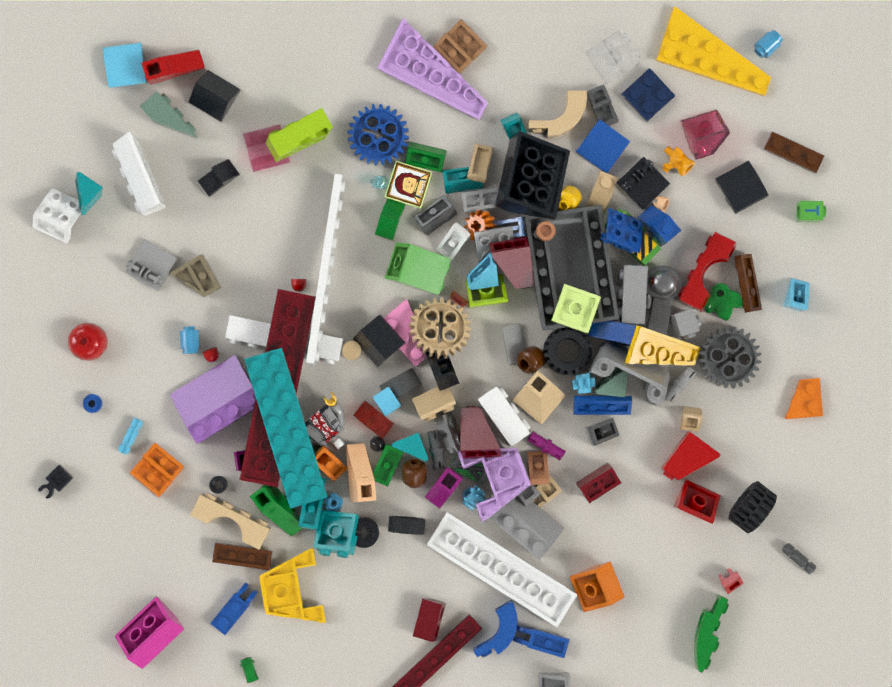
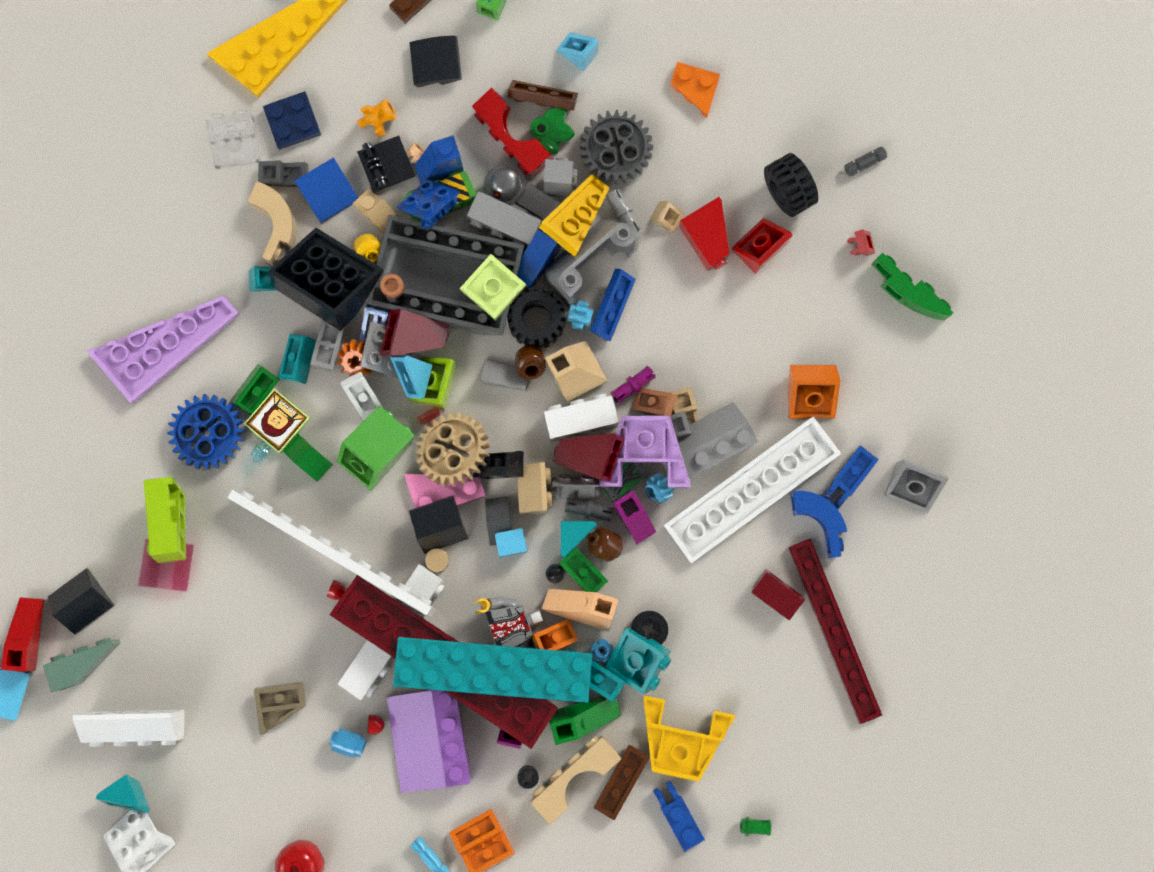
camera: 70 degrees left, 5 degrees down
(150, 265) = (242, 754): light grey hinge -> none
(219, 177) = (176, 635): black slope -> none
(374, 419) = (525, 566): clear red slope -> none
(406, 525) = (660, 576): black tyre -> none
(435, 215) = (324, 404): dark grey slope -> none
(460, 46) = (147, 301): medium nougat slope -> none
(480, 163) = (287, 331): tan tile -> none
(598, 483) = (697, 343): dark red hinge -> none
(602, 432) = (642, 318): dark grey slope -> none
(614, 384) = (594, 281): sand green slope -> none
(705, 133) = (360, 75): clear pink slope -> none

